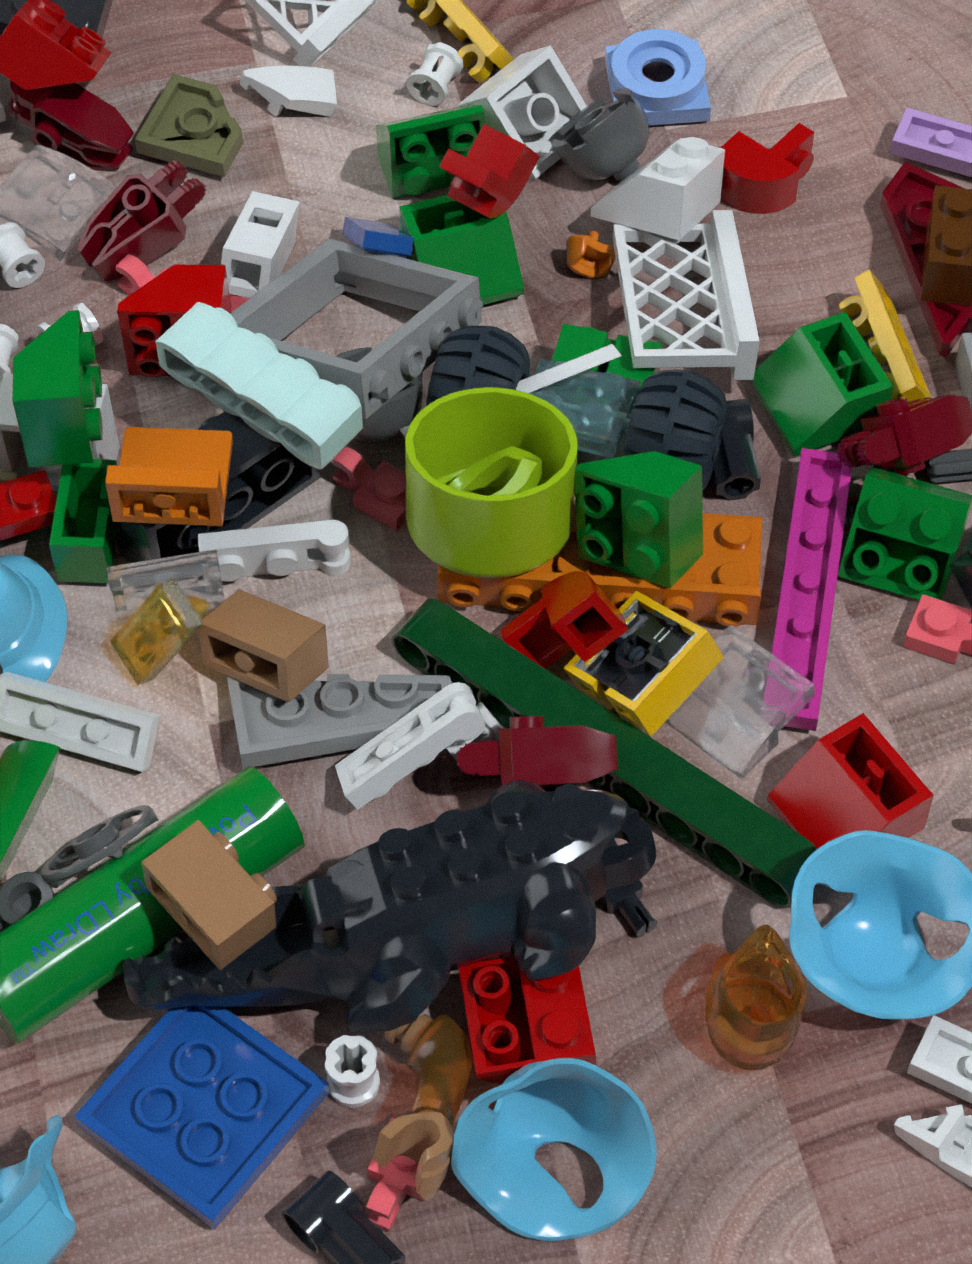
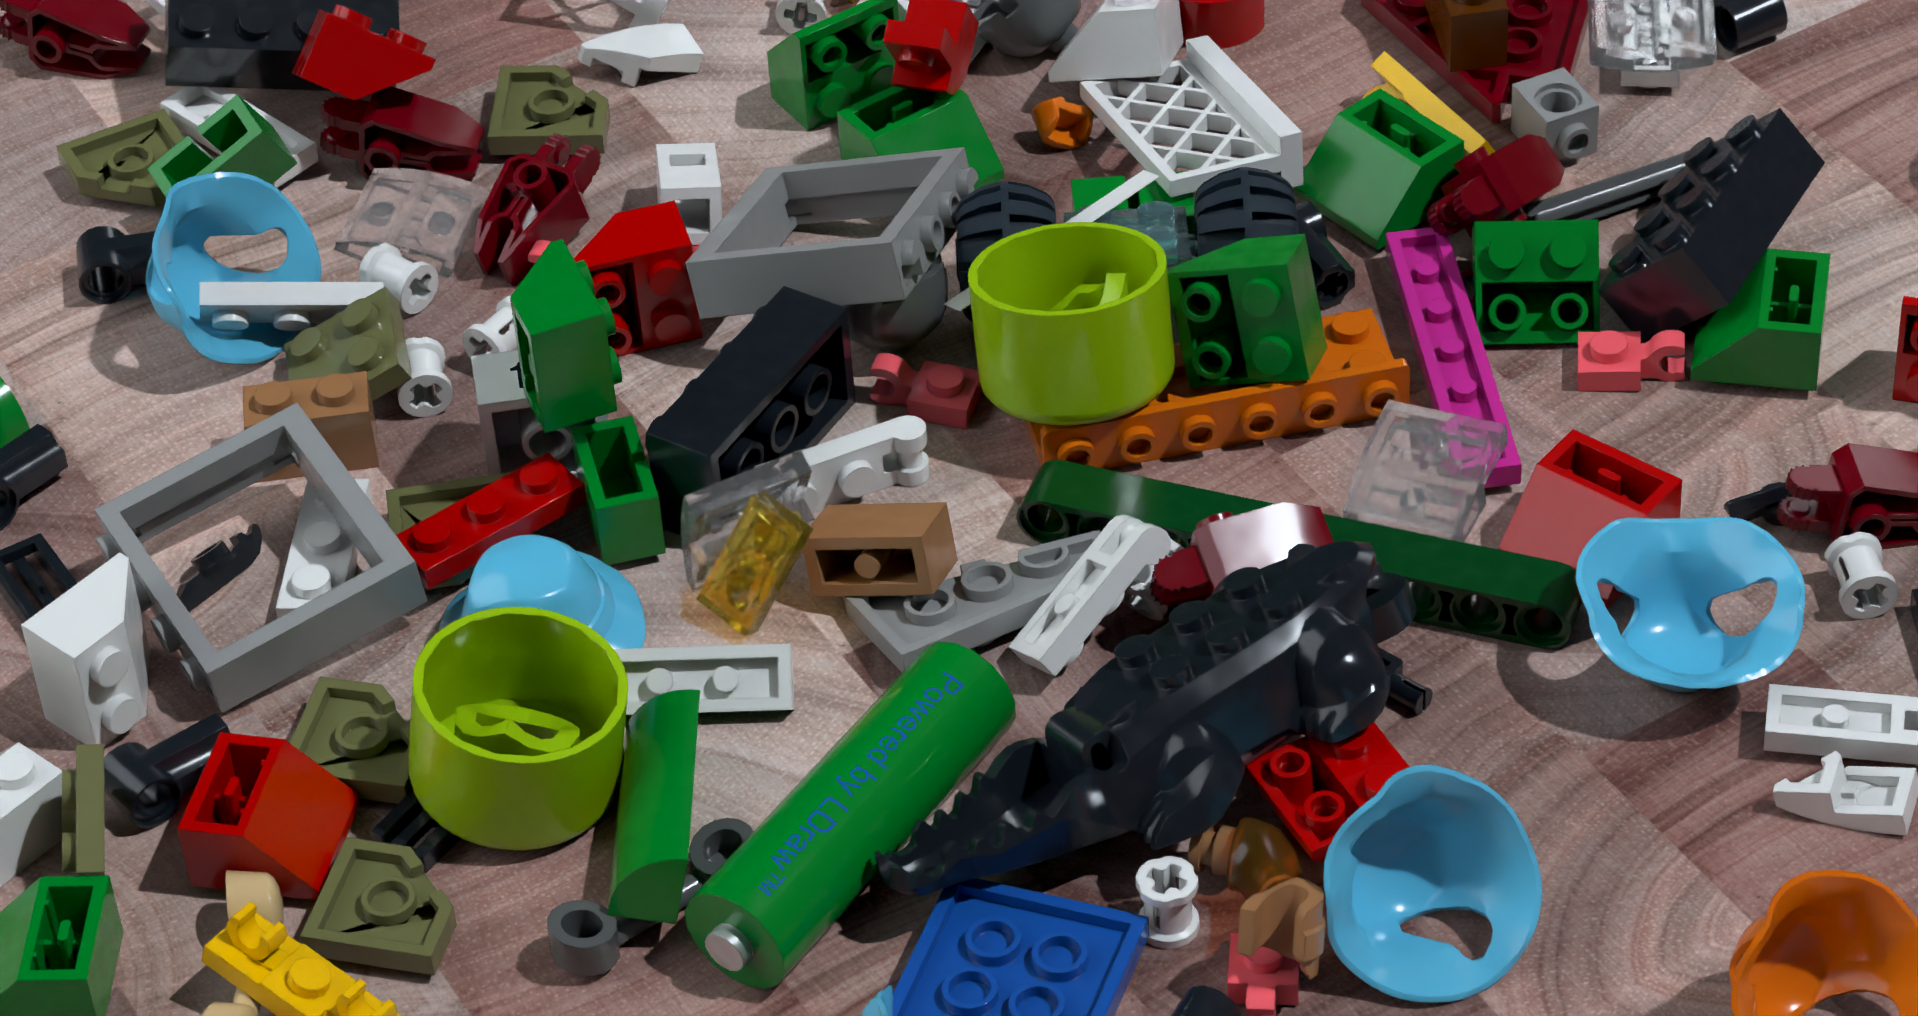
camera: 15 degrees left, 15 degrees down
(96, 844) = (783, 770): dark grey wheel -> none
(171, 476) = (722, 393): orange bracket -> none
(211, 893) = (952, 748): medium nougat brick -> none
(263, 387) = (790, 290): light aqua brick -> none
(377, 236) = (820, 149): blue tile -> none
(568, 617) = (1209, 428): red brick -> none
(648, 666) = (1314, 449): piece -> none
(749, 1002) = (1567, 733): clear orange helmet -> none

